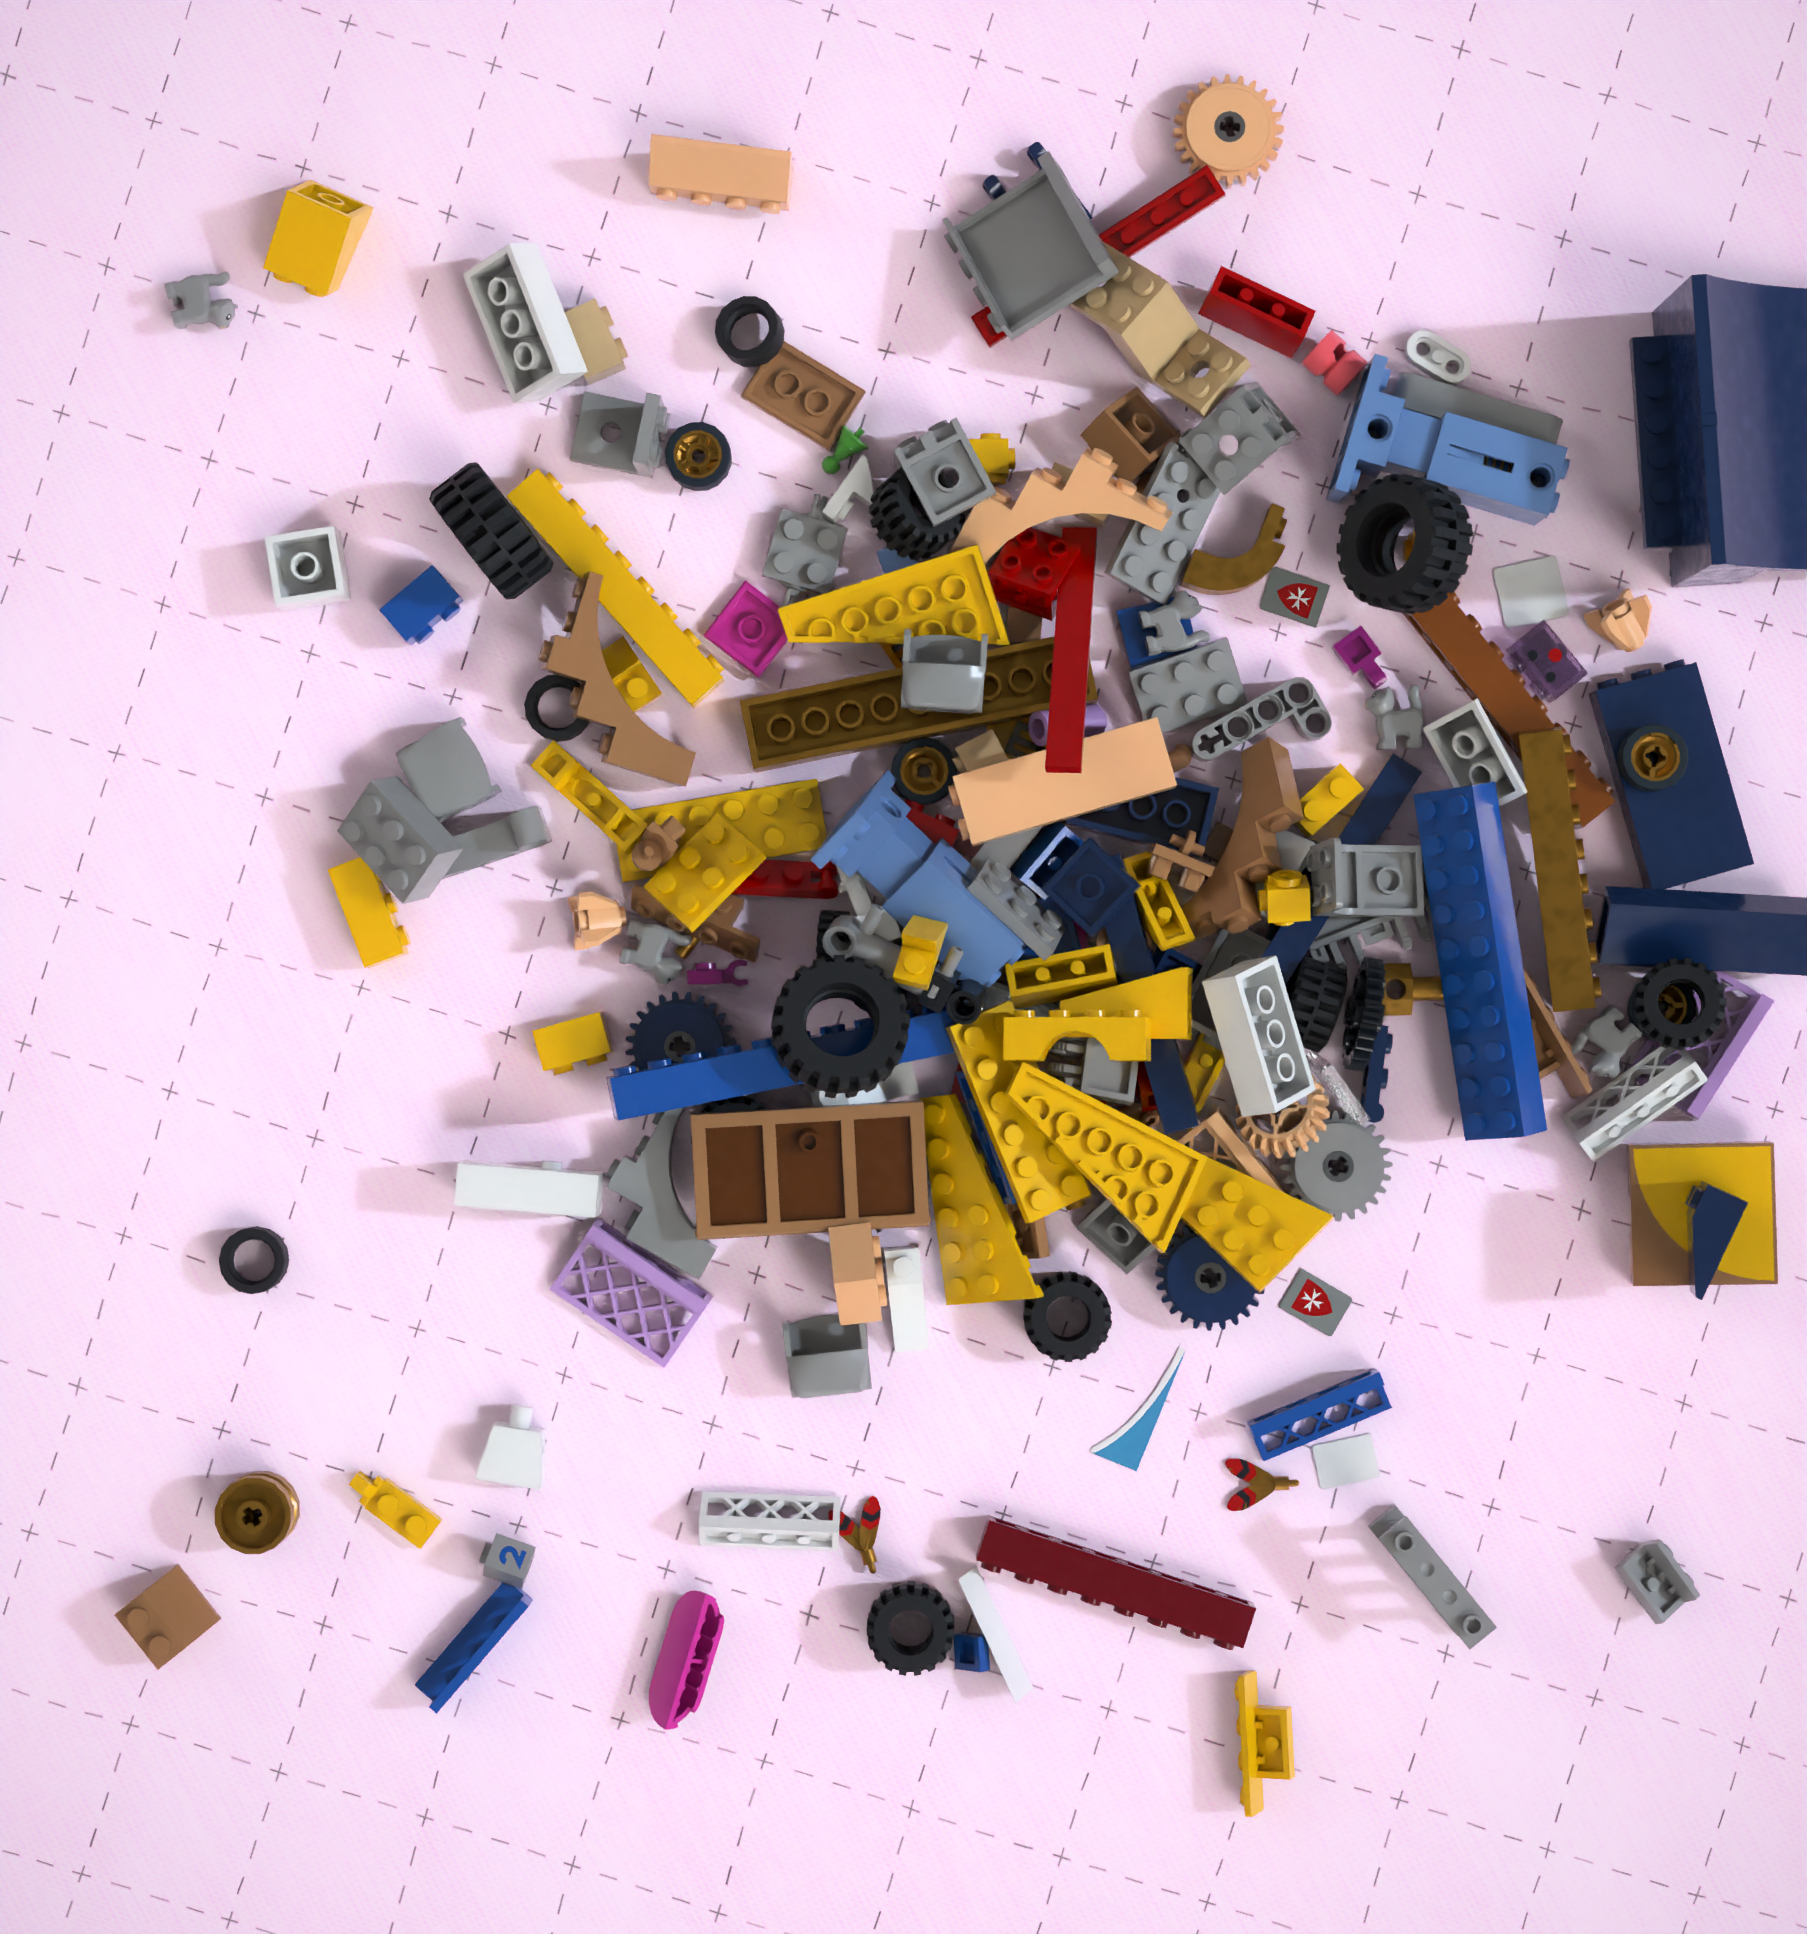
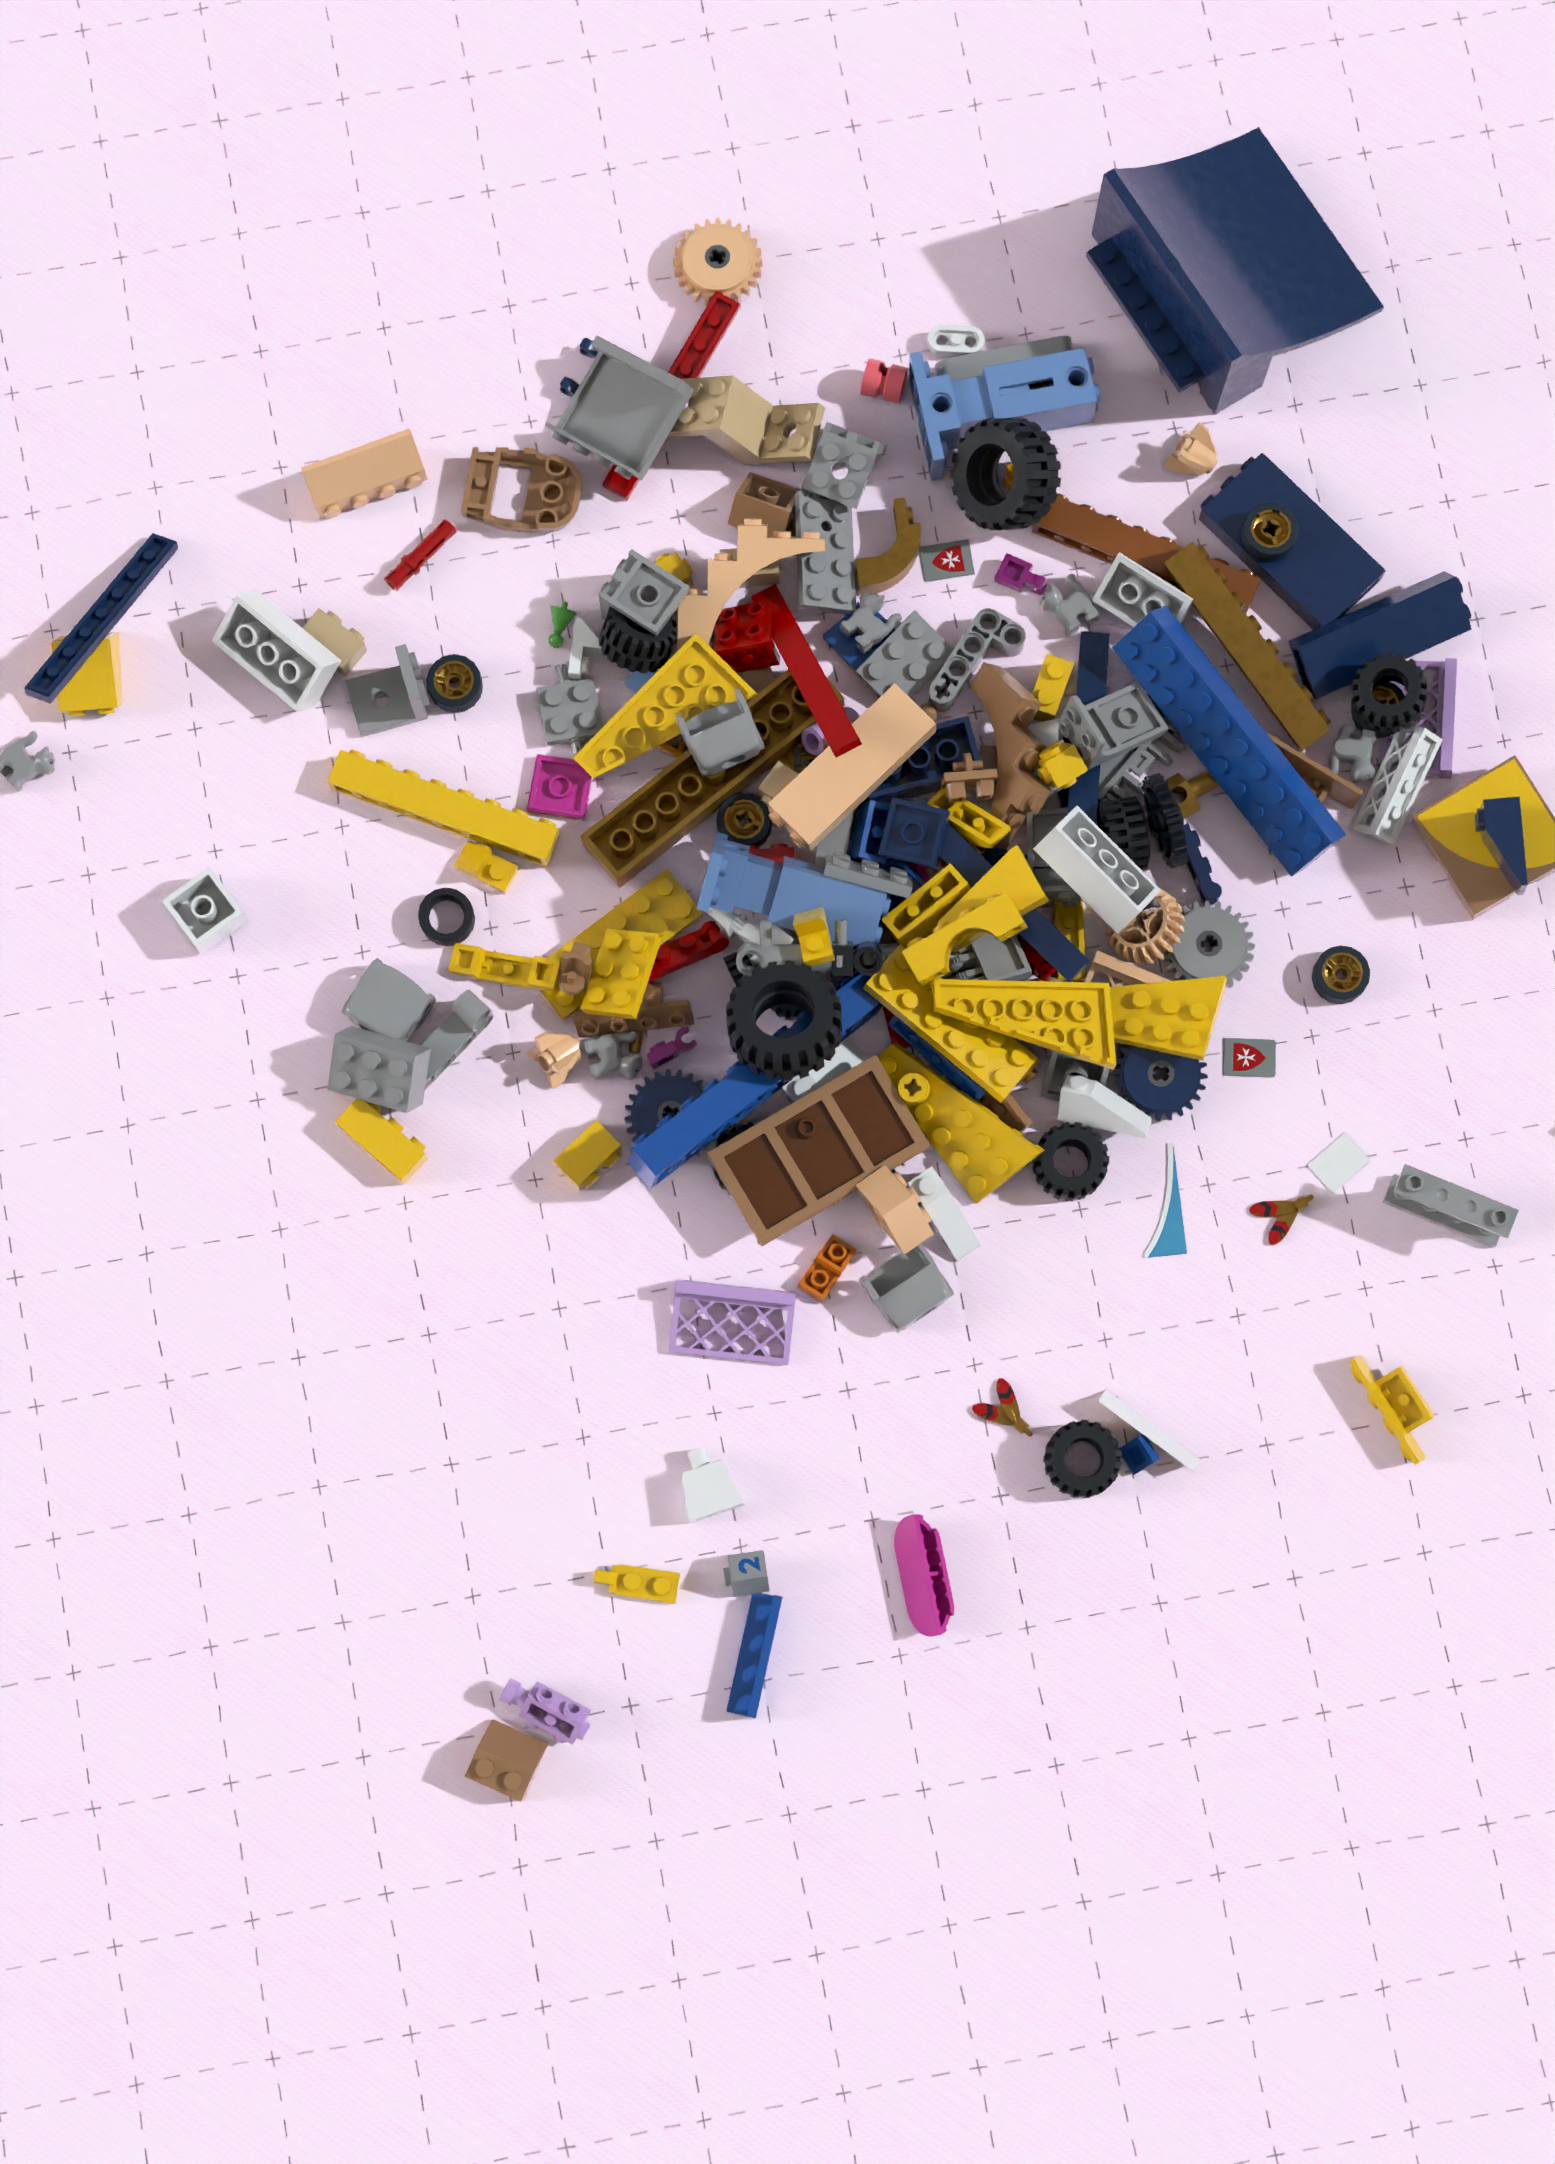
camera: 30 degrees left, 10 degrees down
(227, 1265) = (408, 1442): black tyre -> none
(240, 1590) = (548, 1710): none -> lavender brick
(242, 1527) = (516, 1635): pearl gold wheel -> none
(354, 190) = (101, 618): none -> dark blue tile
(422, 606) = (305, 895): blue brick -> none
(491, 531) = (330, 806): black tyre -> none
(529, 1188) = (614, 1278): white brick -> none
(597, 700) = (443, 866): medium nougat arch -> none
(648, 1182) = (700, 1230): light grey arch -> none
(719, 297) = (411, 563): none -> red pin
(735, 311) = (431, 561): black tyre -> none
(757, 1289) = (827, 1268): none -> orange slope
(798, 1533) = (934, 1442): white fence -> none
(804, 395) = (508, 601): medium nougat tile -> none
(910, 299) = (550, 497): none -> medium nougat slope
(949, 1151) = (920, 1088): none -> yellow wheel
(1115, 1582) = (1216, 1342): dark red brick -> none
(1126, 1277) = (1100, 1108): none -> white slope
(1256, 312) = (808, 373): red brick -> none
(1318, 1403) = (1289, 1131): blue fence -> none
(1334, 1083) = (1179, 885): clear tile -> none
(1477, 1269) = (1354, 968): none -> wheel
(1531, 592) = (1116, 469): white sticker -> none
(1545, 662) = (1154, 509): clear purple brick -> none

